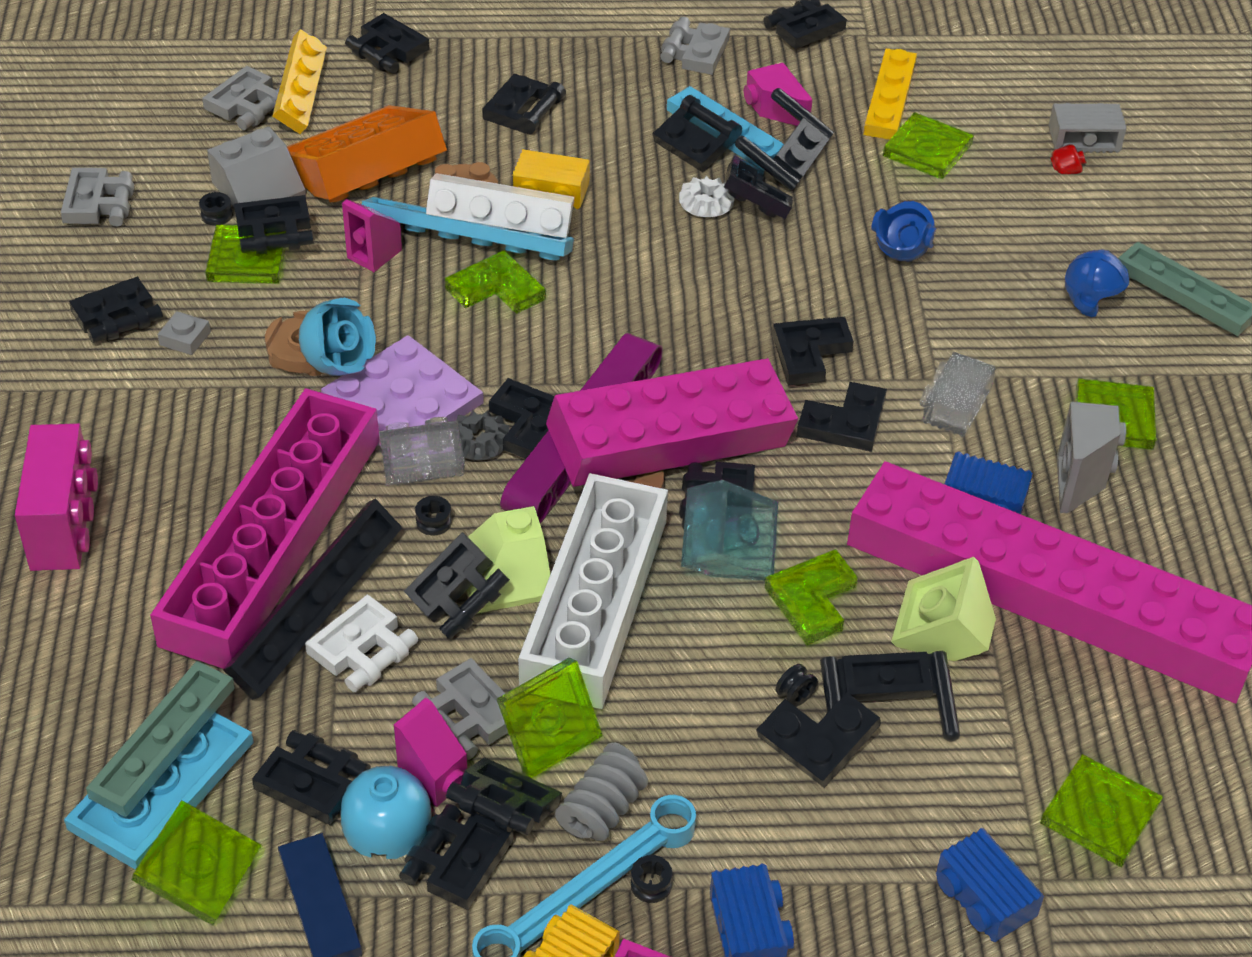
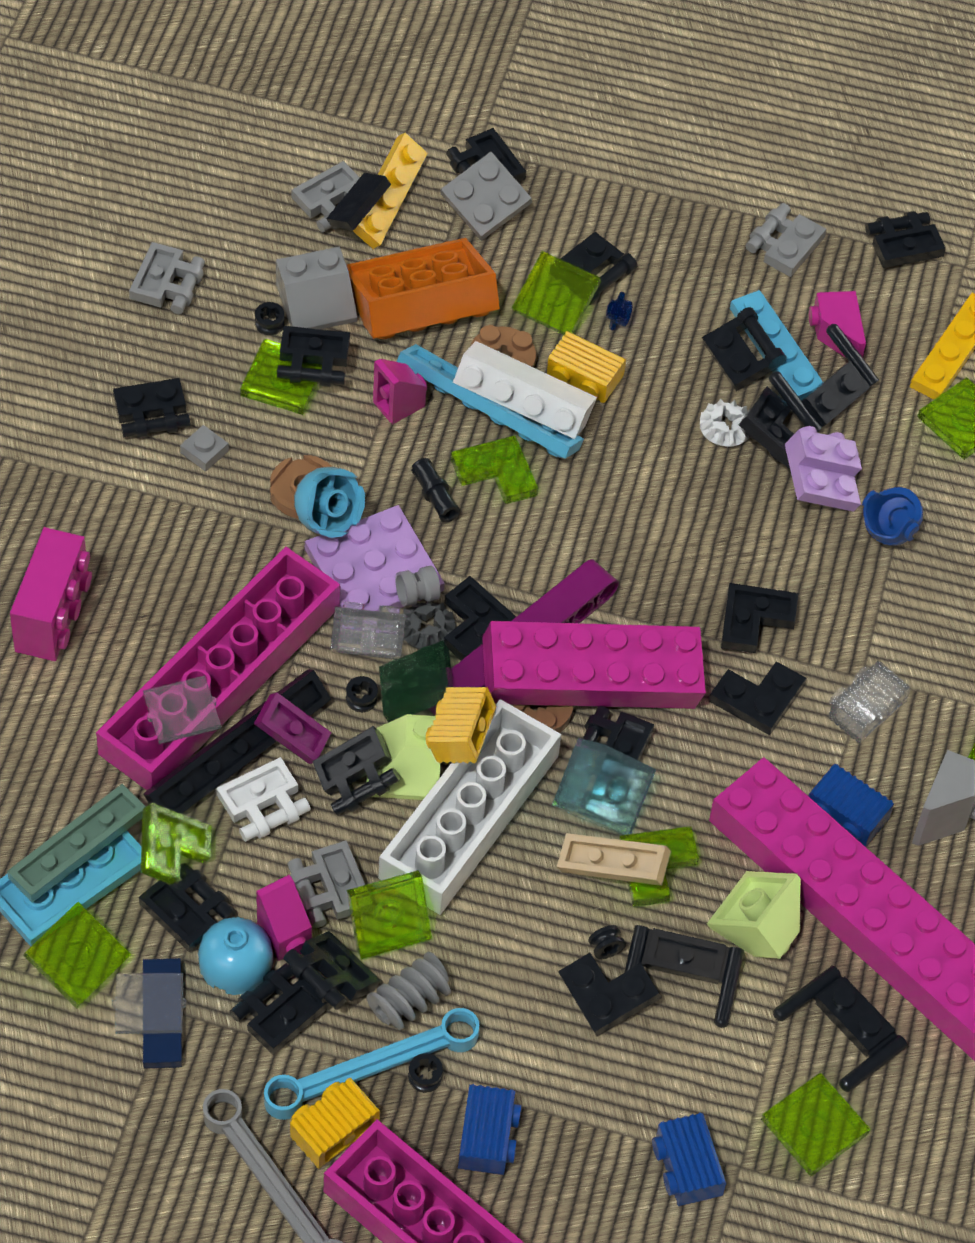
camera: 15 degrees right, 10 degrees up
(242, 567) = (181, 709): none -> clear piece
(269, 707) = (167, 838): none -> clear neon green plate
(274, 89) = (358, 201): none -> black tile
(301, 892) = (149, 1003): none -> clear piece
(371, 561) = (292, 728): none -> magenta plate
(397, 65) = (486, 196): none -> light grey plate
(441, 314) = (435, 490): none -> black pin
(458, 395) = (417, 586): none -> light grey wheel
(490, 483) = (415, 681): none -> clear green plate
(497, 126) = (556, 294): none -> clear neon green tile
(559, 503) = (460, 724): none -> yellow brick
(564, 129) = (619, 311): none -> clear blue plate
(771, 598) = (614, 859): none -> tan plate
(820, 206) = (824, 468): none -> lavender plate
(1087, 691) = (854, 1017): none -> black plate

